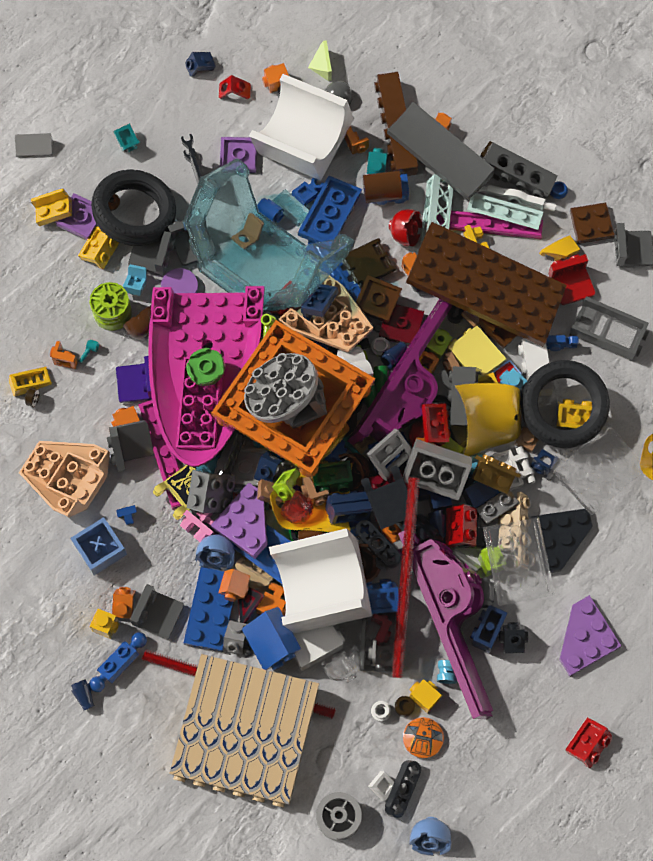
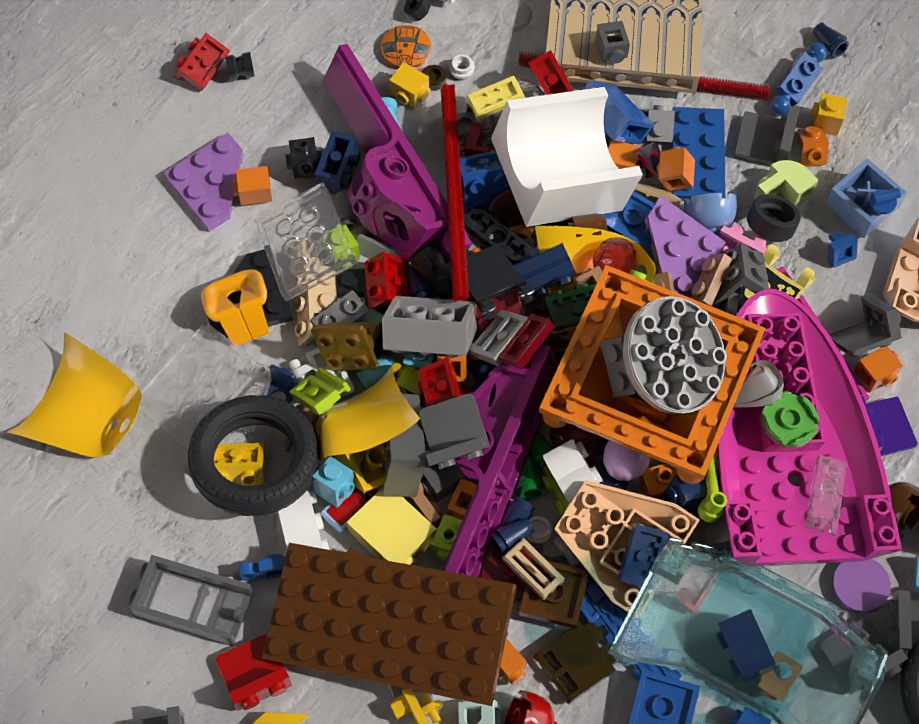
camera: 170 degrees right, 5 degrees down
(90, 528) = (884, 200): none -> blue plate
(152, 575) = (790, 180): none -> yellowish green brick
(156, 540) = (769, 228): none -> black tyre
(191, 327) = (826, 494): none -> clear hinge
(218, 385) = (761, 386): none -> light grey piece
(230, 490) = (711, 278): none -> medium nougat plate
(258, 679) = (612, 47): none -> dark grey brick
(264, 250) = (746, 645): none -> dark blue brick
(314, 666) = (550, 74): none -> red slope
(363, 650) = (494, 97): none -> light yellow plate
(374, 436) = (526, 341): none -> dark red plate
(398, 323) = (550, 586): none -> tan tile
(399, 336) = (508, 536): none -> dark blue cone
(431, 382) = (453, 431): none -> dark grey bracket
(517, 443) = (319, 391): none -> lime plate
(554, 620) = (252, 185): none -> orange brick
(558, 733) = (239, 66): none -> black wheel
(585, 521) = (240, 321): none -> light orange piece

